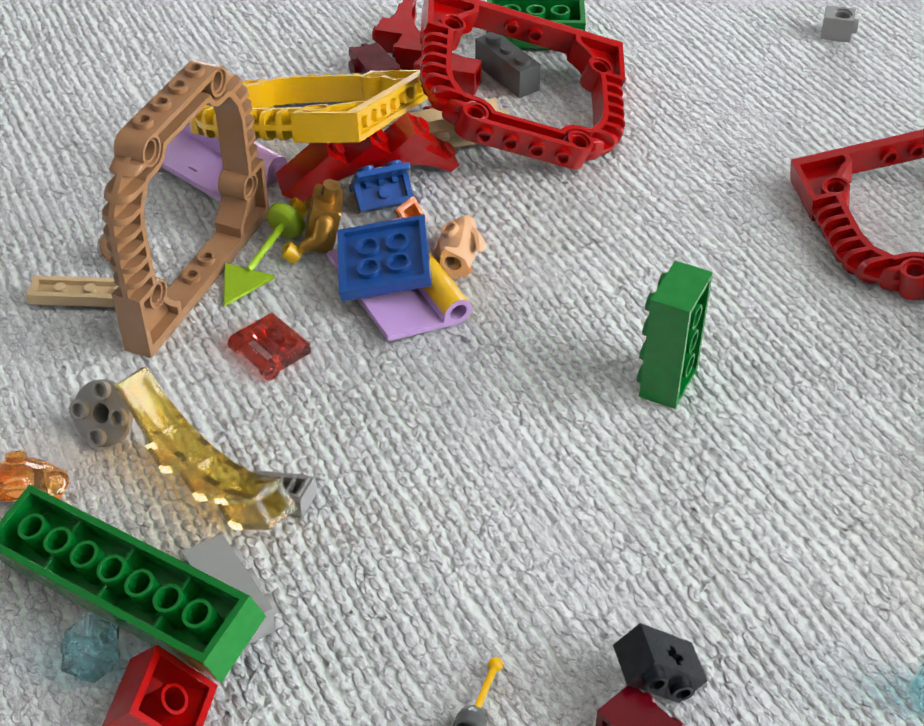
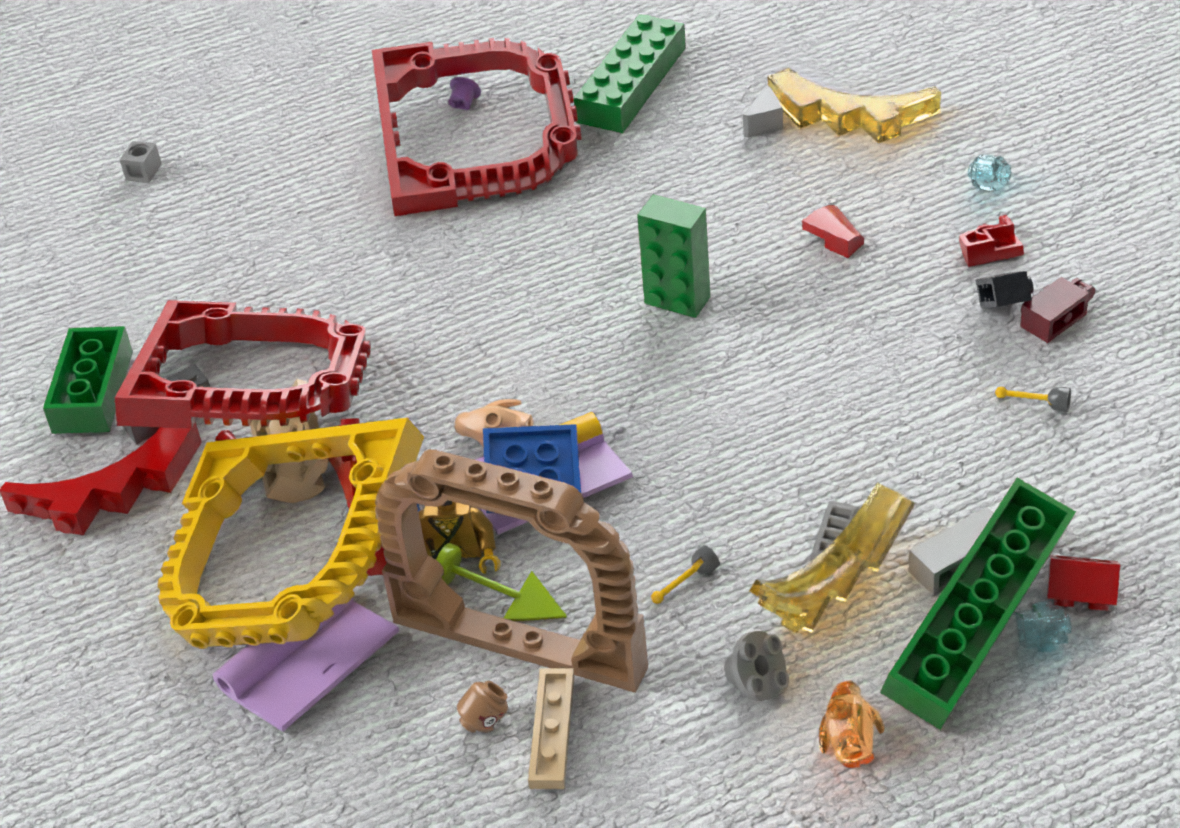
camera: 85 degrees left, 0 degrees up
(258, 385) = (702, 561): none -> hinge
(274, 337) = (646, 549): clear red plate -> none
(370, 58) = (139, 522): dark red brick -> none
(790, 682) = (991, 243): none -> red slope
(799, 515) = (835, 228): none -> slope

